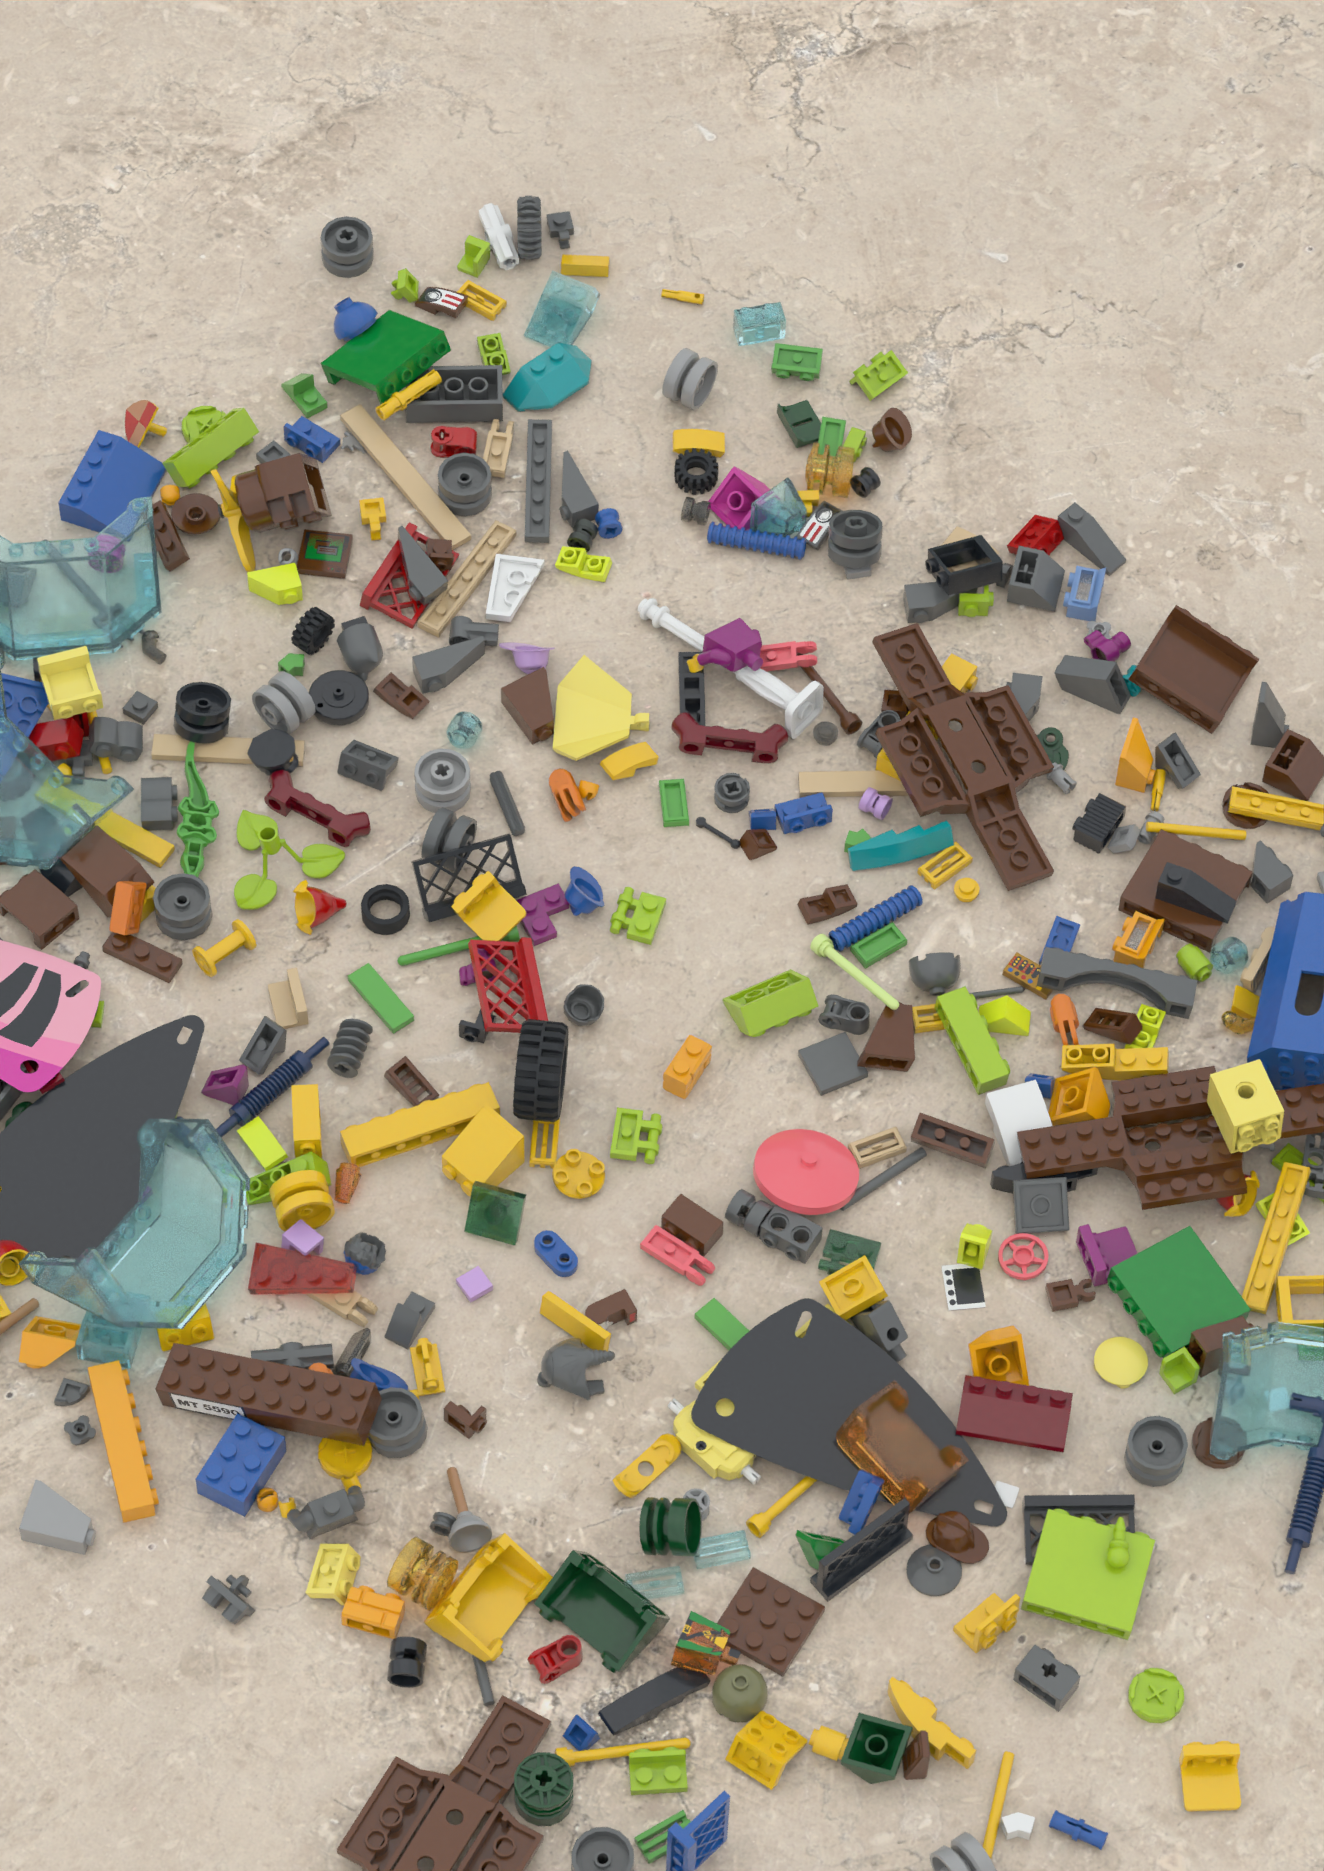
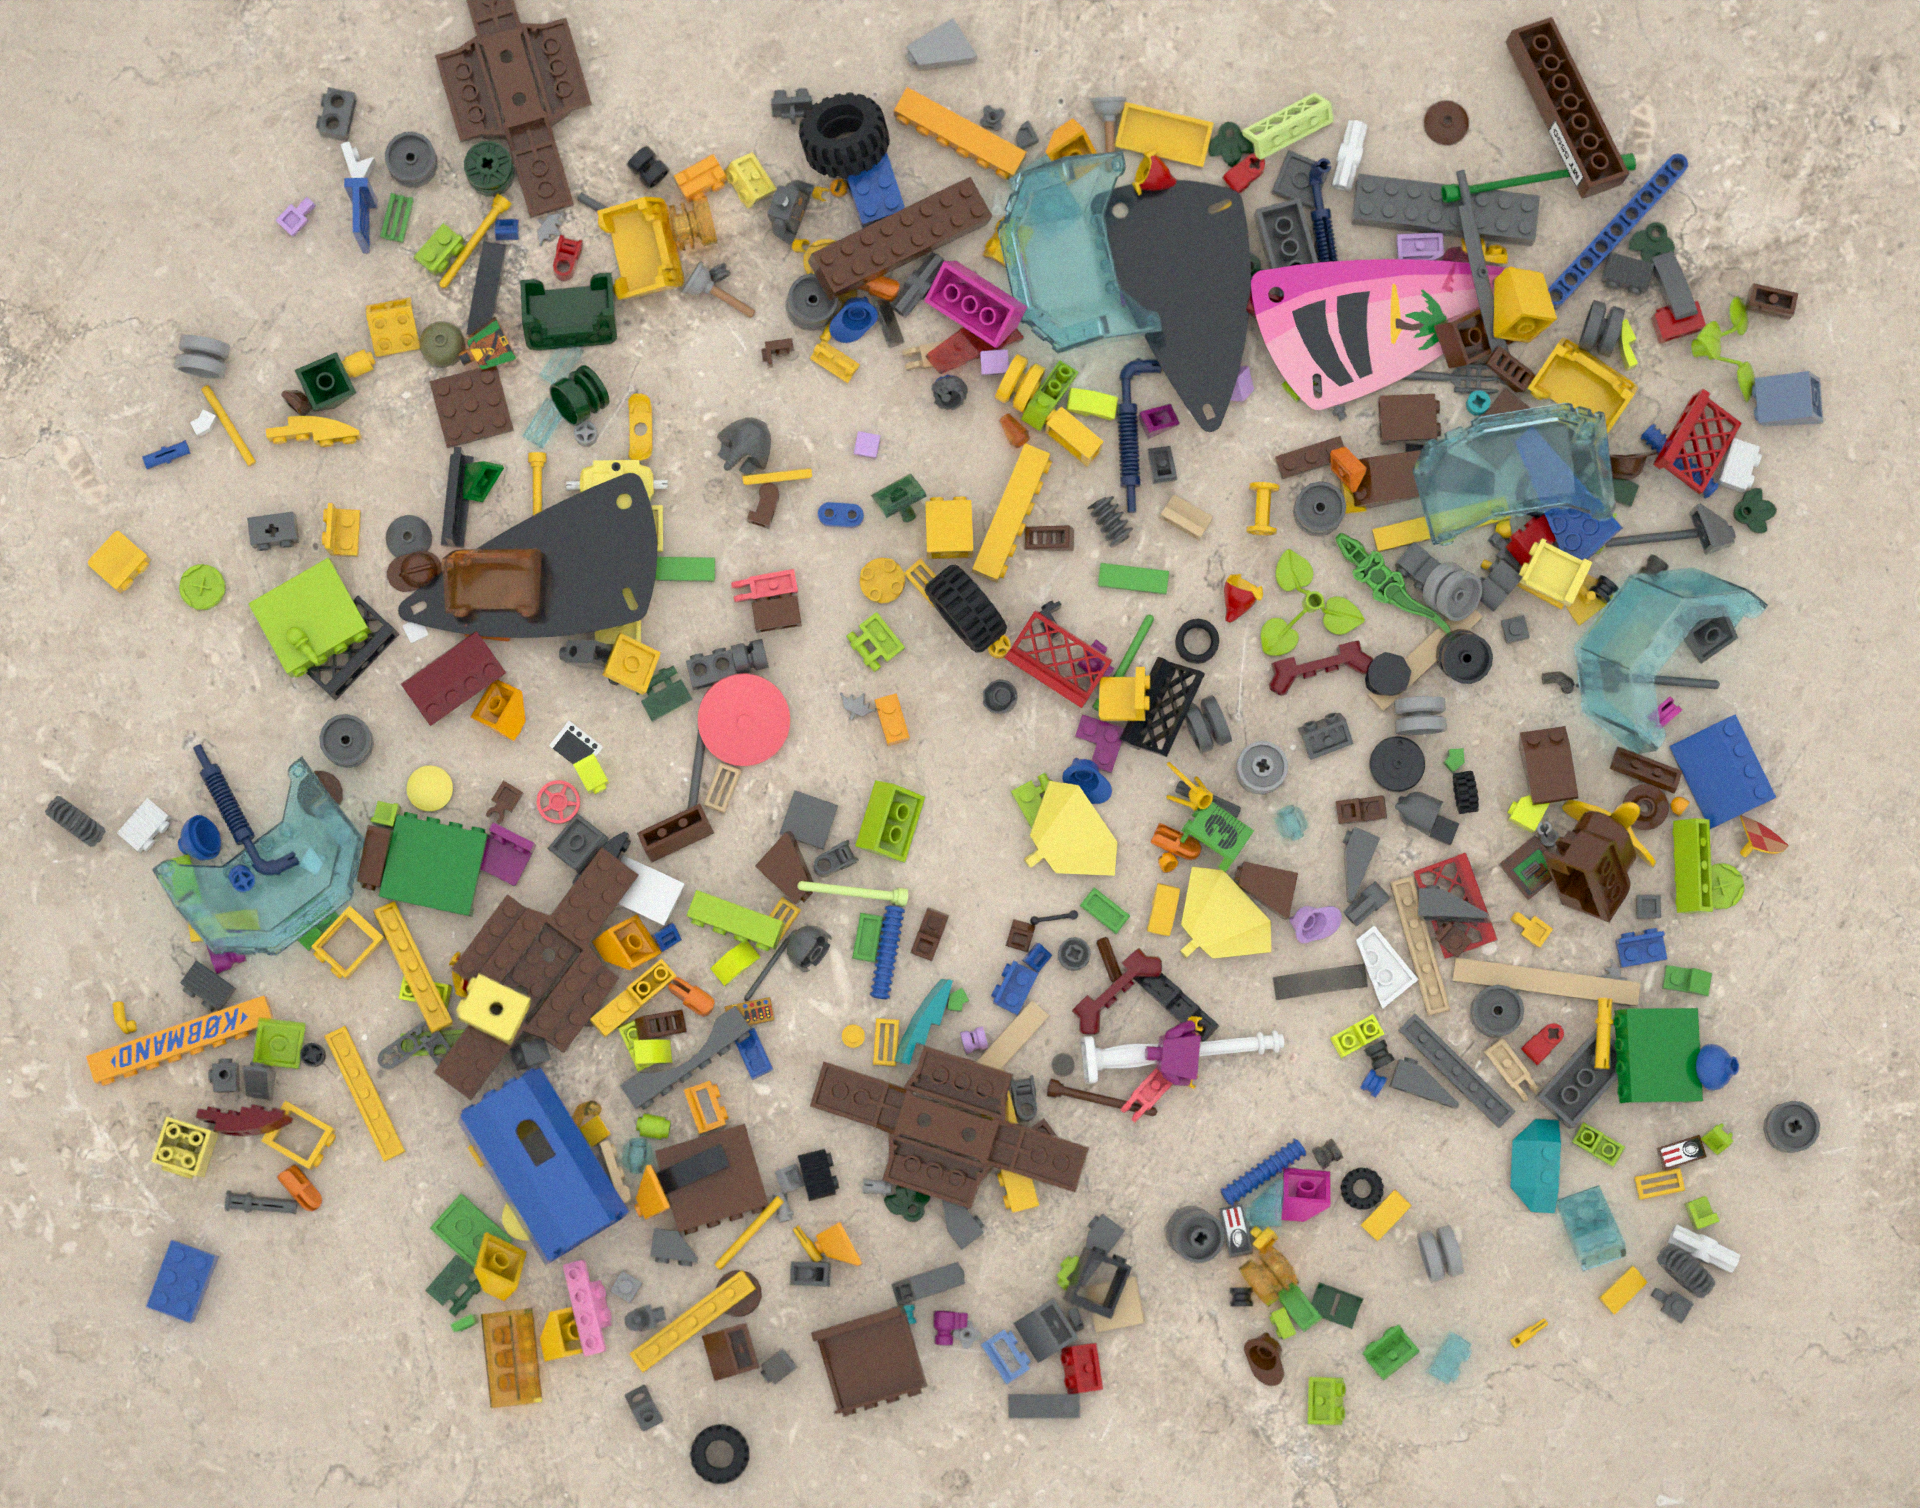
camera: 130 degrees right, 25 degrees up
(156, 753) = (1452, 591): none -> light grey wheel
(185, 1516) = (848, 154): none -> black tyre
(232, 591) = (1548, 765): none -> reddish brown slope
(266, 1291) = (975, 303): none -> dark pink slope
(409, 1320) = (880, 383): dark grey slope -> none
(513, 796) = (1199, 796): none -> yellow plant
(529, 765) = (1219, 832): none -> bright green panel
(543, 1702) = (549, 227): none -> light grey piece
(571, 616) = (1320, 981): none -> clear smoke slope
(642, 863) = (1071, 834): none -> light yellow panel
(702, 1107) = (856, 706): none -> light grey piece
(708, 768) = (1109, 959): none -> reddish brown axle
(861, 1500) = (486, 527): blue bracket -> none
(1143, 1004) = (653, 1051): none -> neon yellow slope
(1249, 913) = (651, 1195): none -> light orange slope

